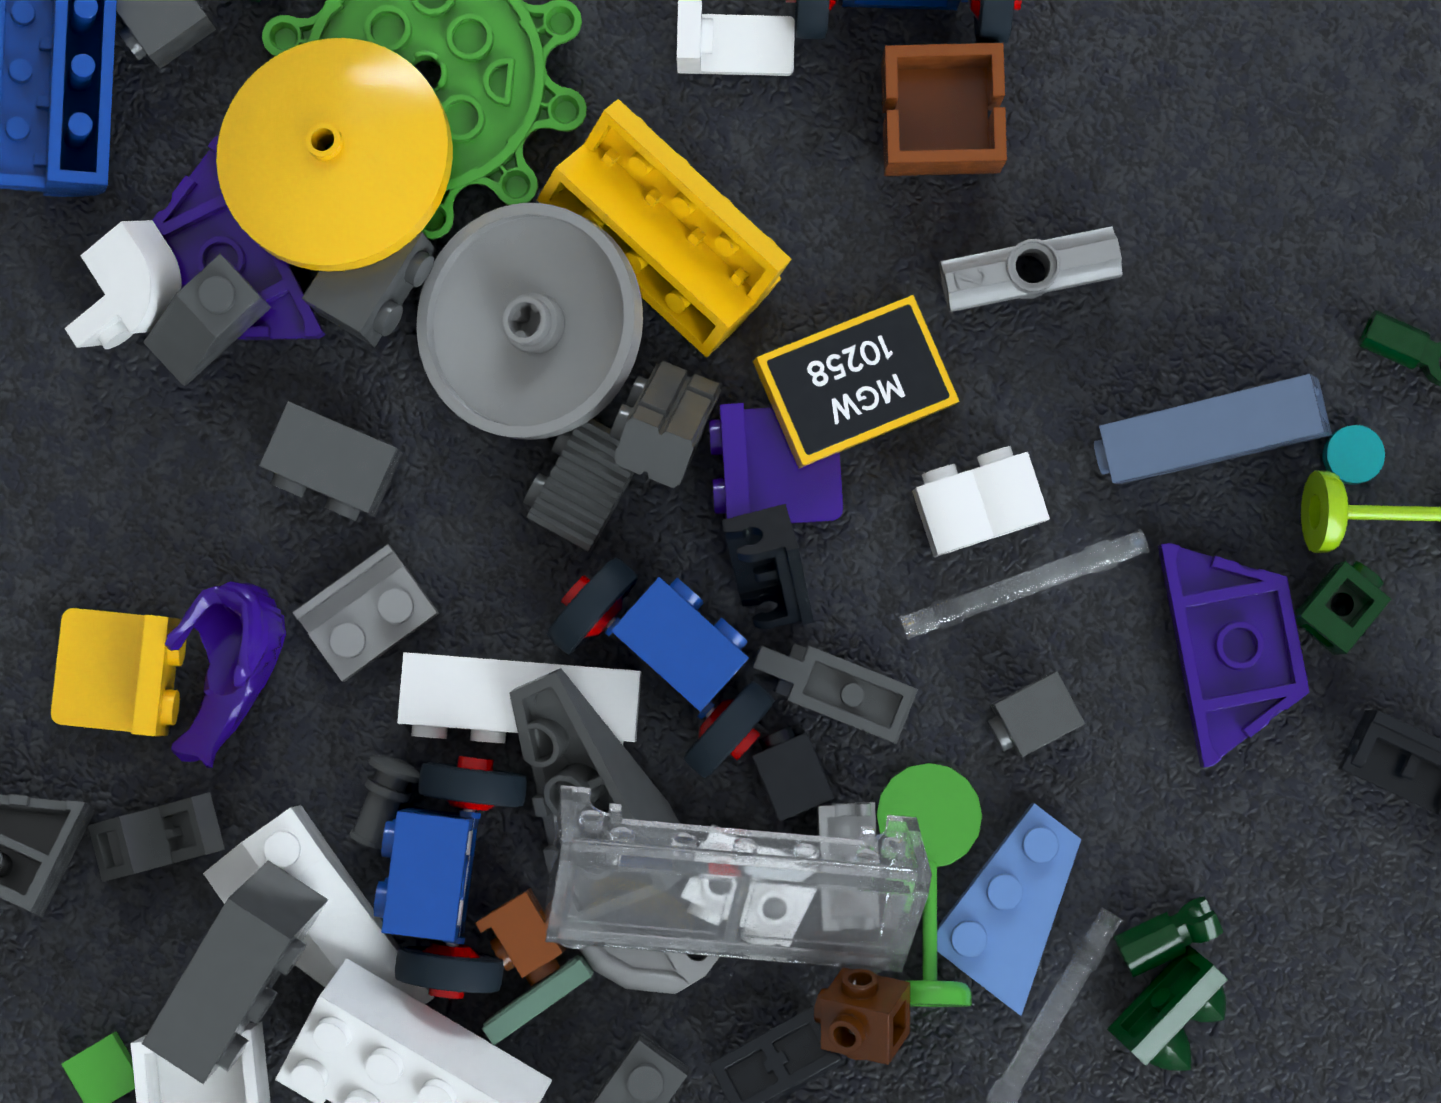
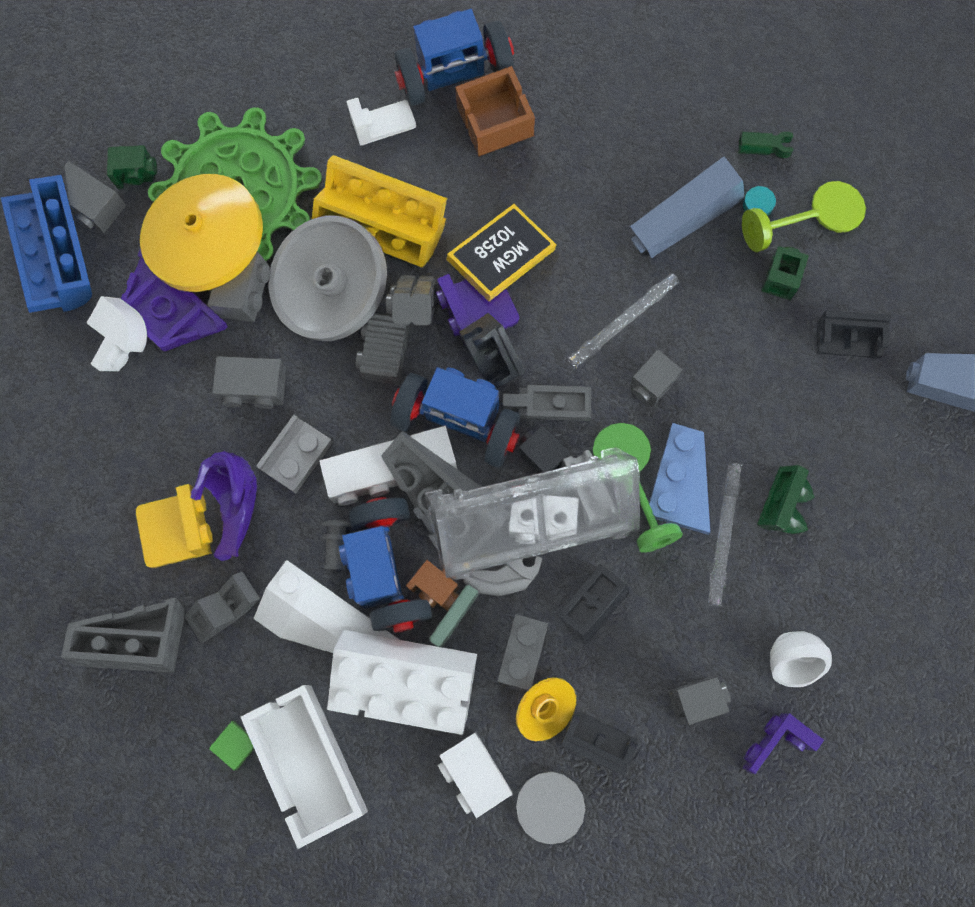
camera: 15 degrees left, 10 degrees down
(205, 319) = (161, 332): dark grey slope -> none
(234, 972) = (282, 653): dark grey wedge -> none
(864, 1015) = (629, 555): reddish brown brick -> none
(979, 502) = (585, 287): white brick -> none
(1067, 263) = (581, 161): light grey piece -> none
(1167, 936) = (767, 465): dark green bar -> none
(1233, 646) = (739, 310): dark purple wing -> none

